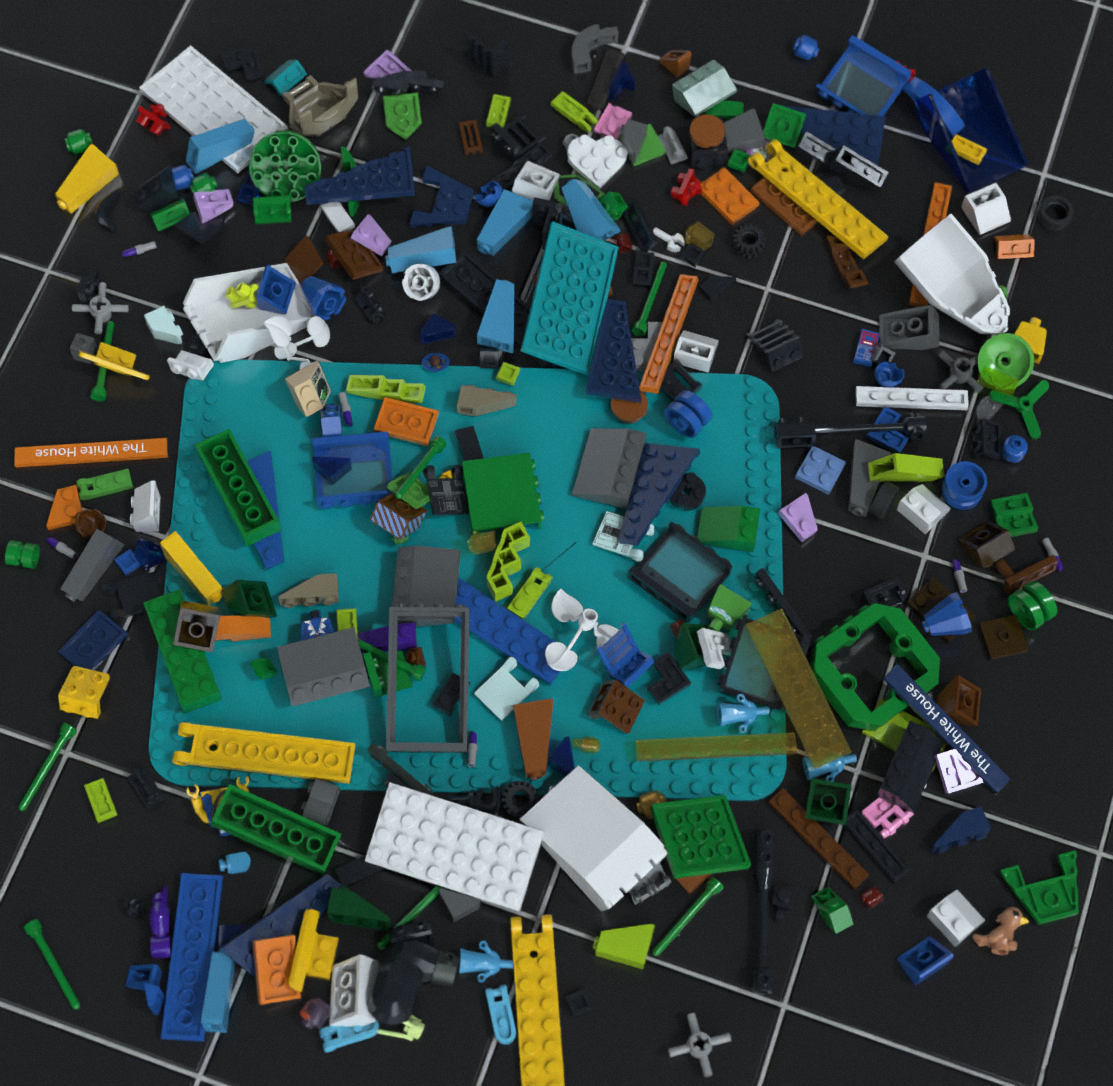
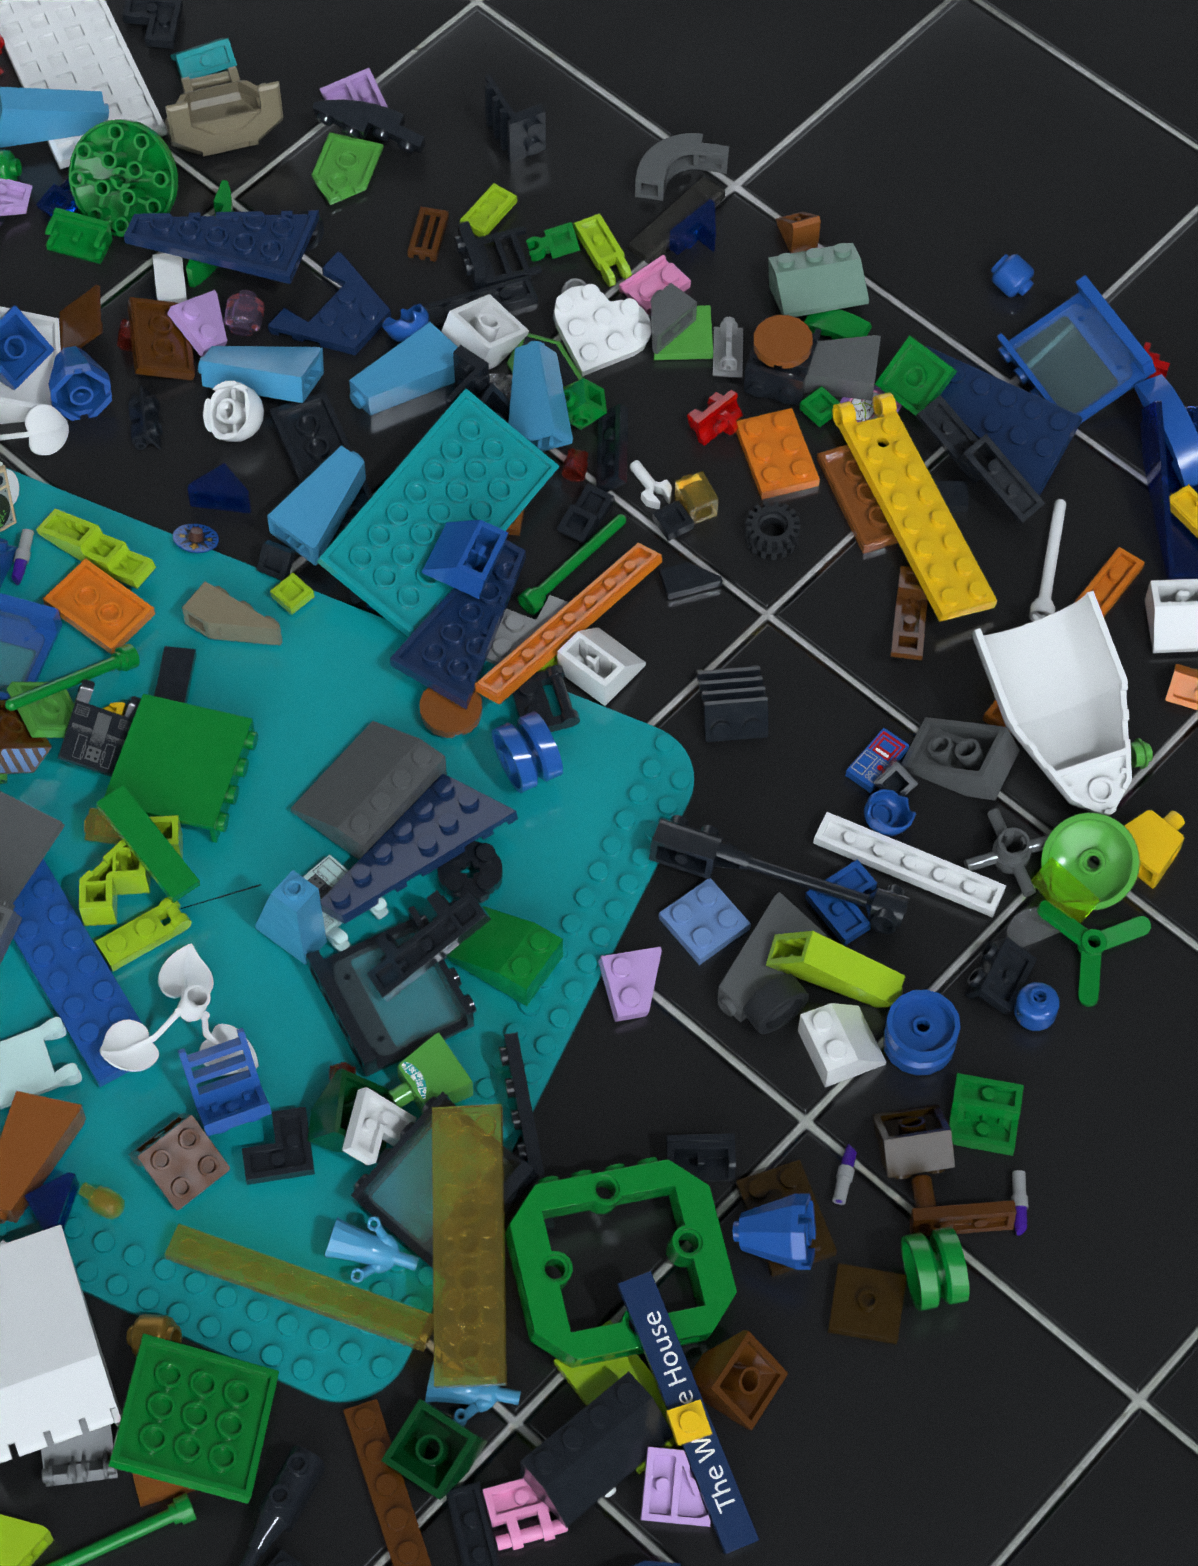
camera: 25 degrees right, 5 degrees down
(393, 221) = (244, 313): none -> clear purple head
(514, 543) = (148, 843): none -> green tile
(546, 115) = (558, 242): none -> green plate
(600, 316) = (466, 555): none -> blue slope
(612, 552) = (294, 917): none -> dark azure slope
(699, 527) = (411, 959): none -> black hinge
(912, 232) = (1043, 605): none -> white piece
(951, 734) = (688, 1422): none -> yellow plate

